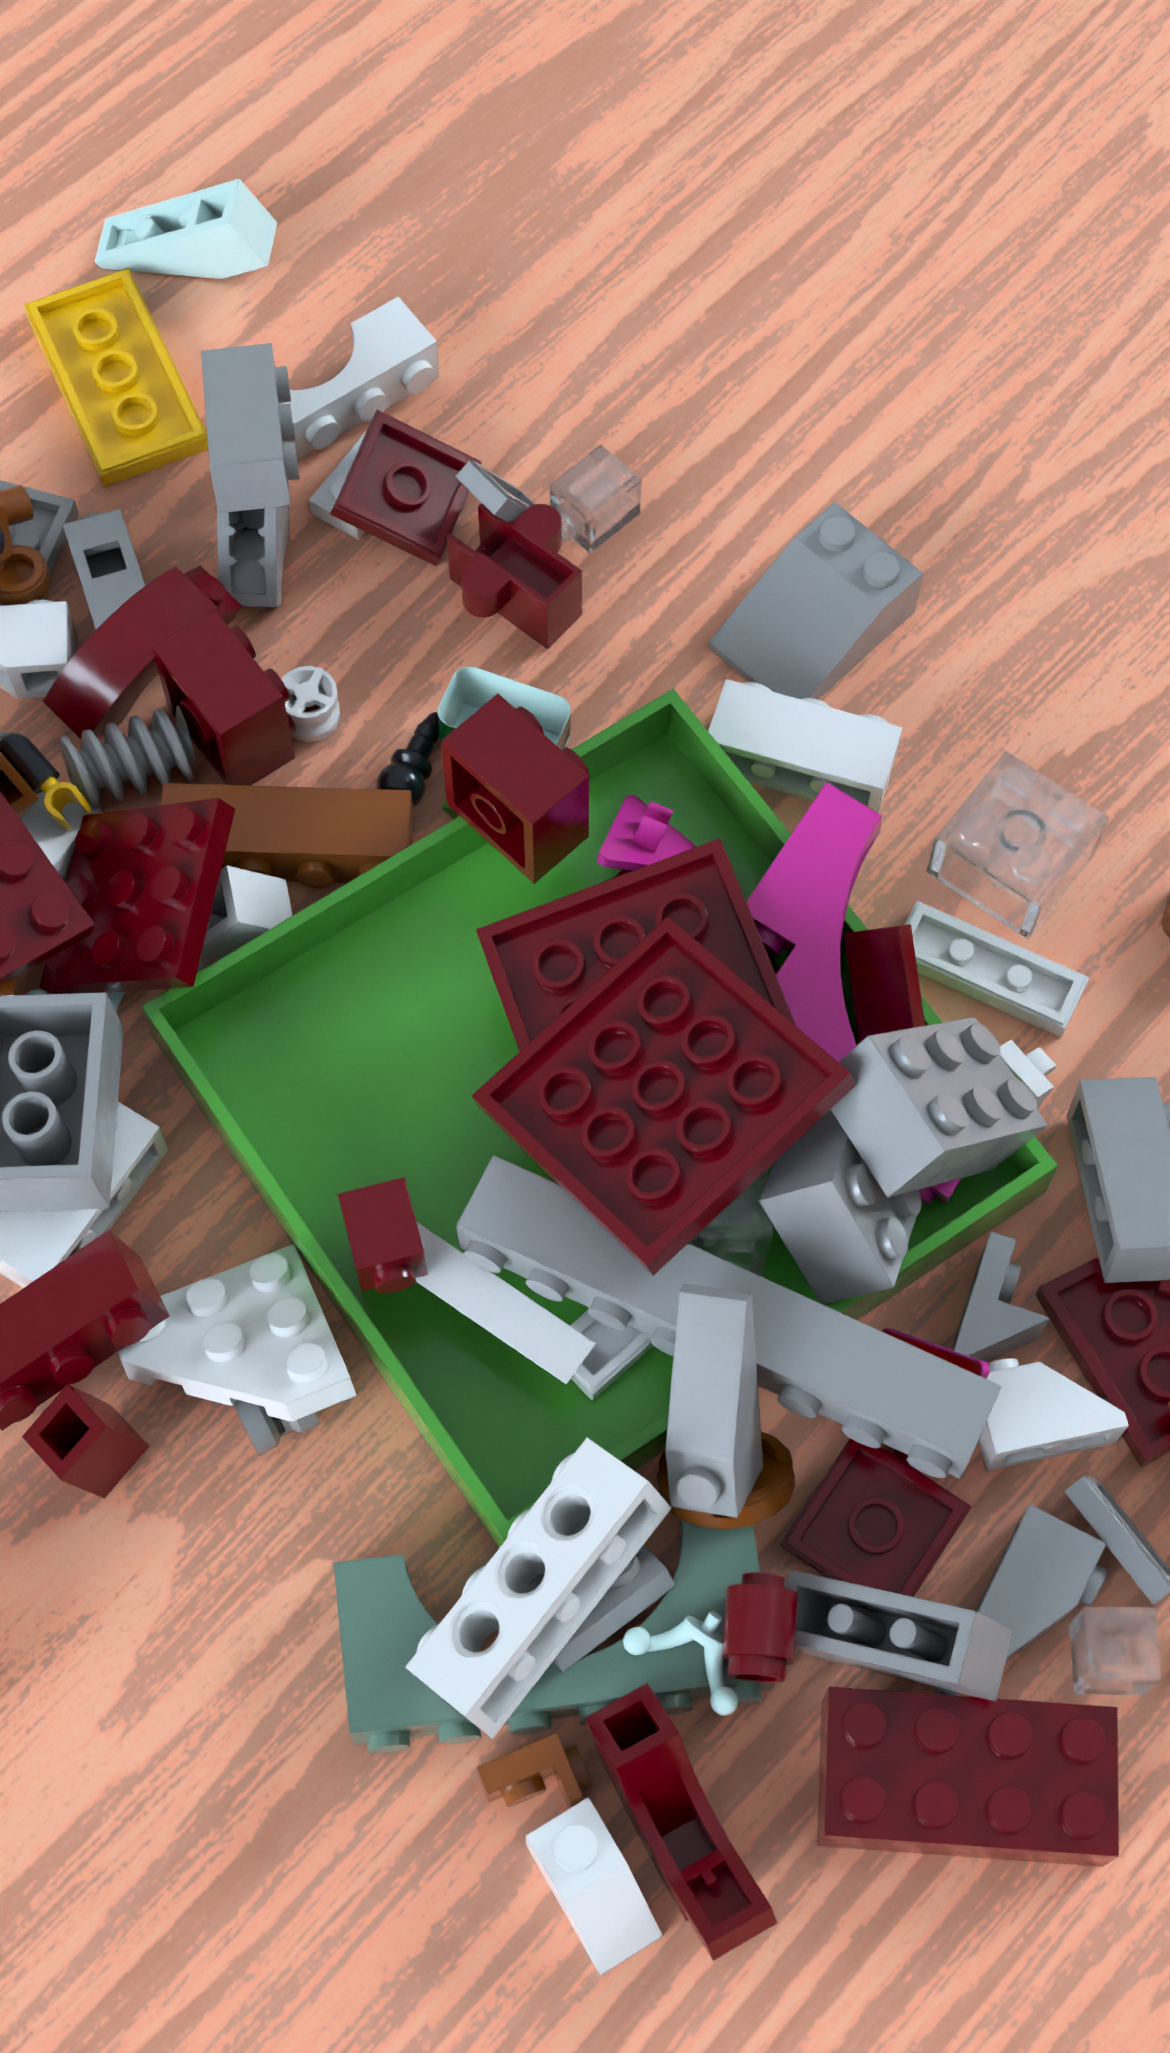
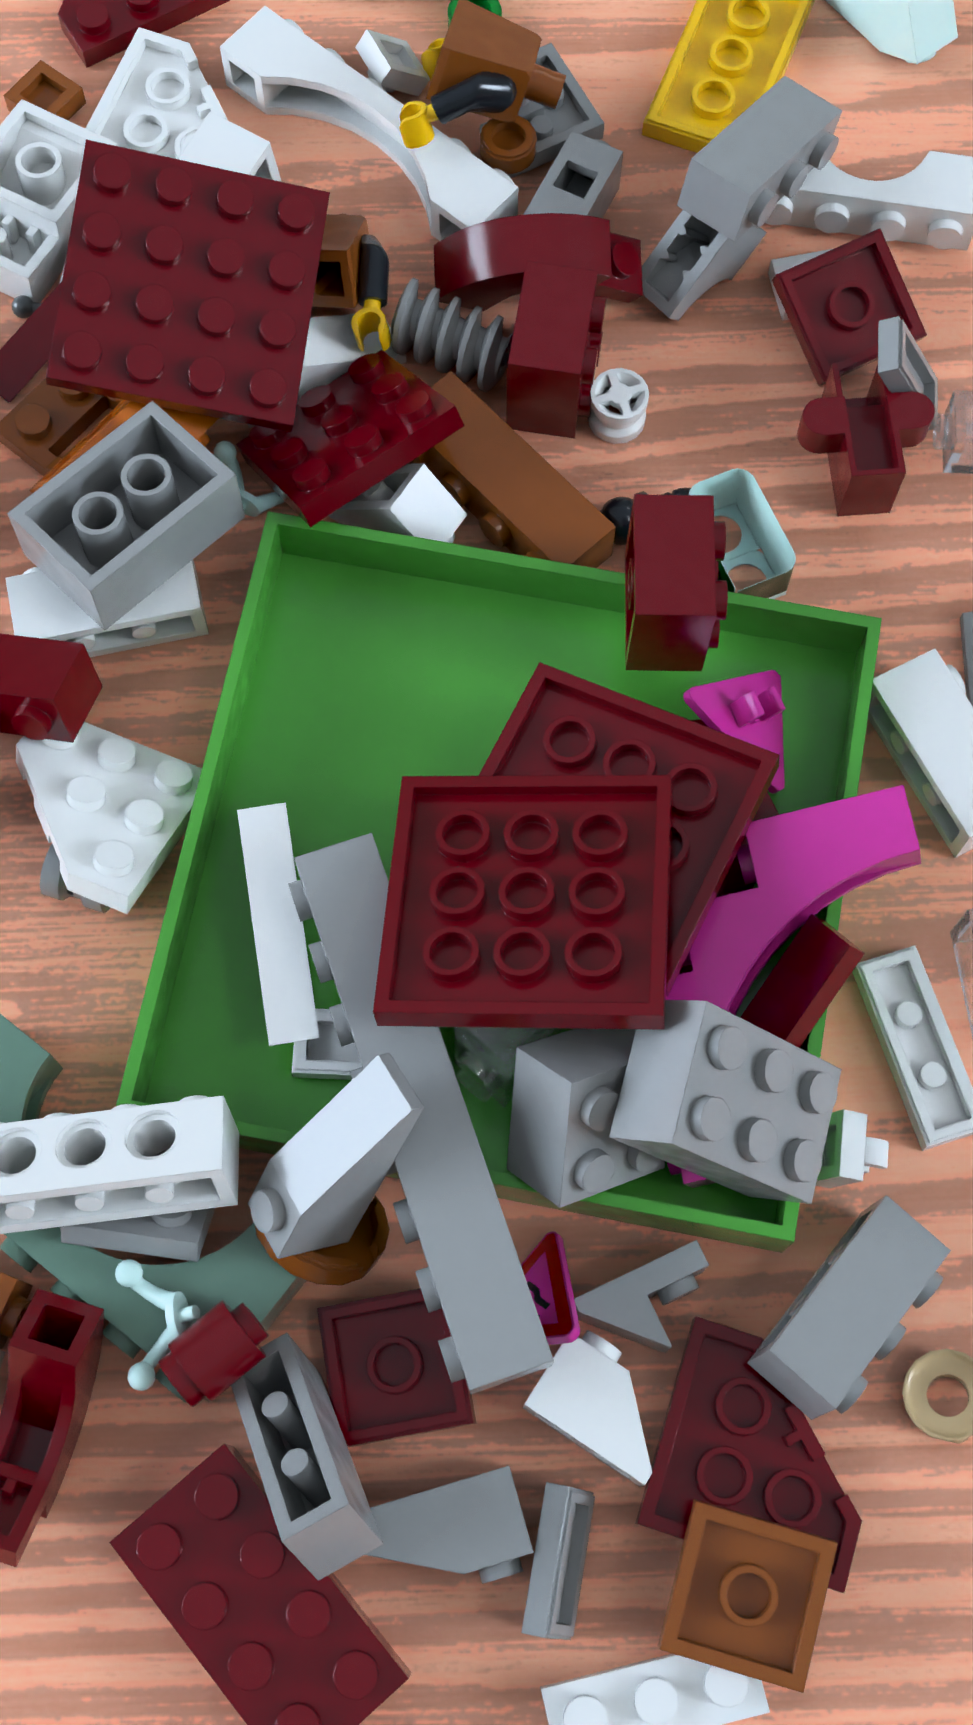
camera: 45 degrees right, 5 degrees up
(383, 1236) = (245, 819): dark red brick -> none
(1115, 1650) = (458, 1636): clear brick -> none

